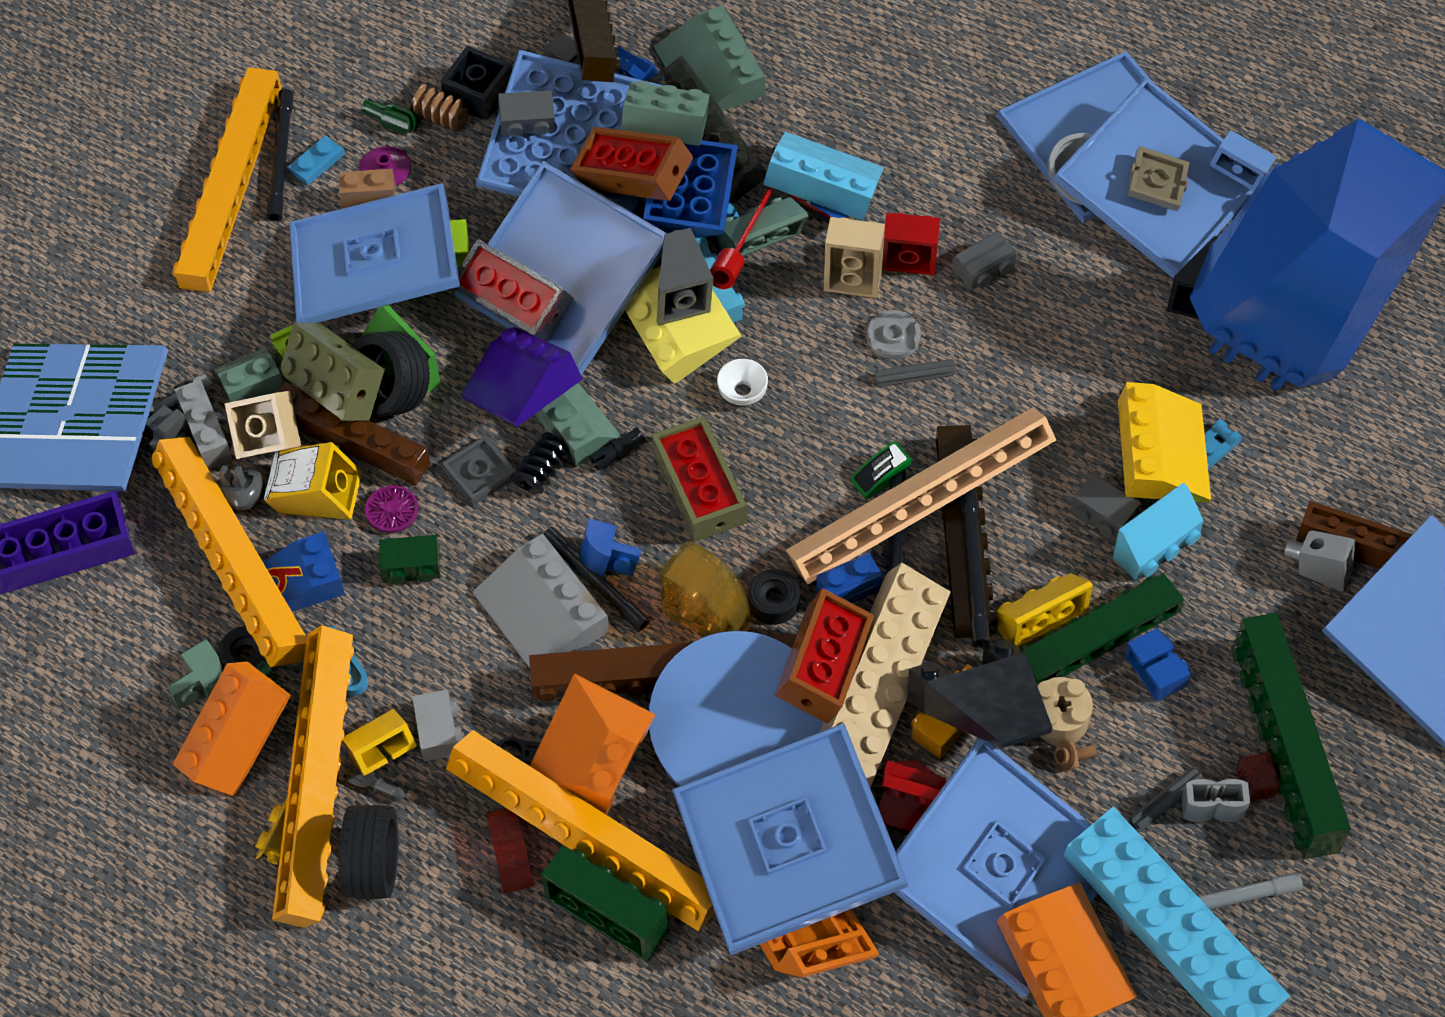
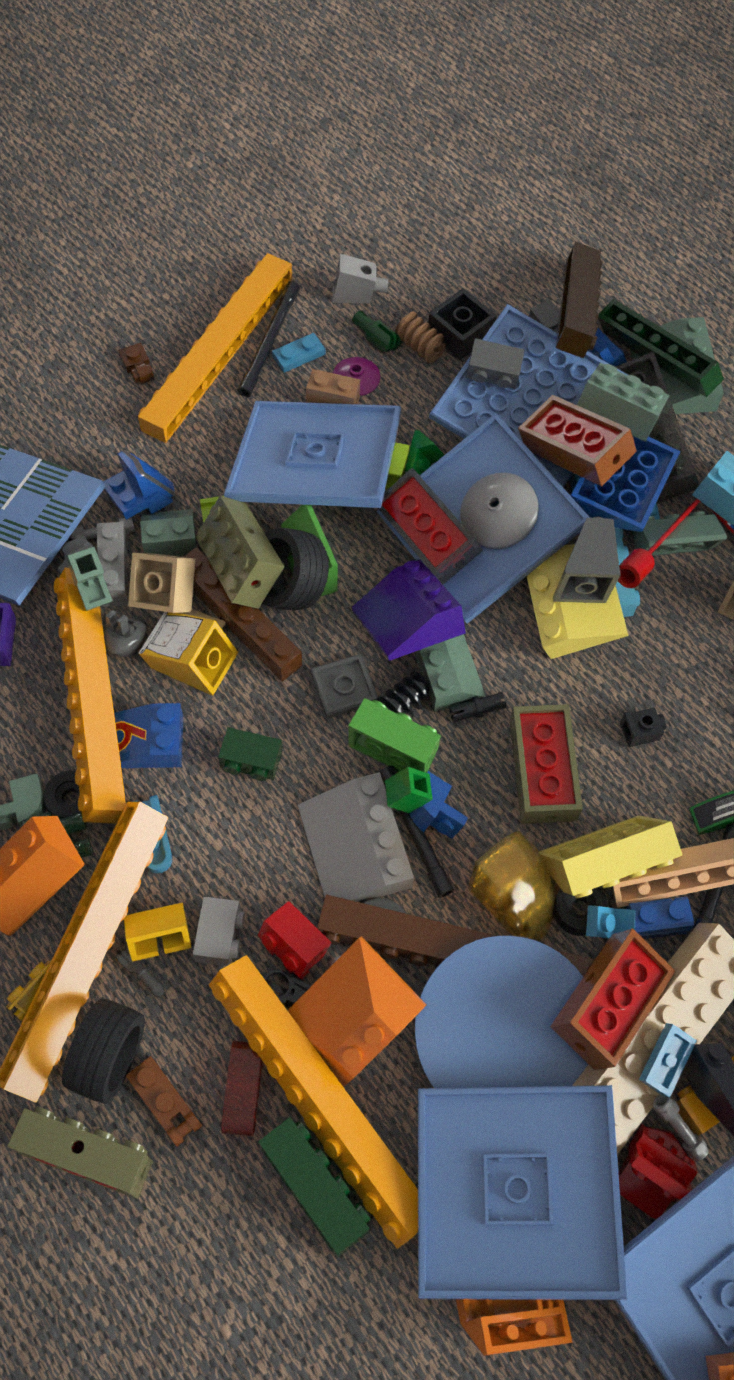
camera: 15 degrees right, 5 degrees up
(149, 219) = (137, 363): none -> reddish brown plate
(186, 438) = (89, 578): none -> sand green brick
(200, 342) = (138, 487): none -> blue piece
(352, 69) = (356, 281): none -> light grey torso
(380, 945) = (81, 1153): none -> olive brick
(391, 509) = (251, 698): magenta wheel -> none
(438, 885) = (163, 1100): none -> dark orange plate
(481, 223) = (422, 453): none -> green slope
(512, 707) = (293, 940): none -> red brick
(545, 500) = (392, 737): none -> bright green slope
(576, 538) = (408, 790): none -> green brick
(588, 263) = (509, 520): none -> light grey dish
(700, 51) = (671, 353): none -> dark green brick
(742, 372) = (620, 670): white piece -> none
(782, 418) = (637, 732): none -> black brick
(788, 535) = (611, 854): none -> light yellow slope
(797, 596) = (606, 921): none -> dark azure slope
(889, 689) = (667, 1060): none -> dark azure plate
(939, 762) = (693, 1144): none -> light grey bar

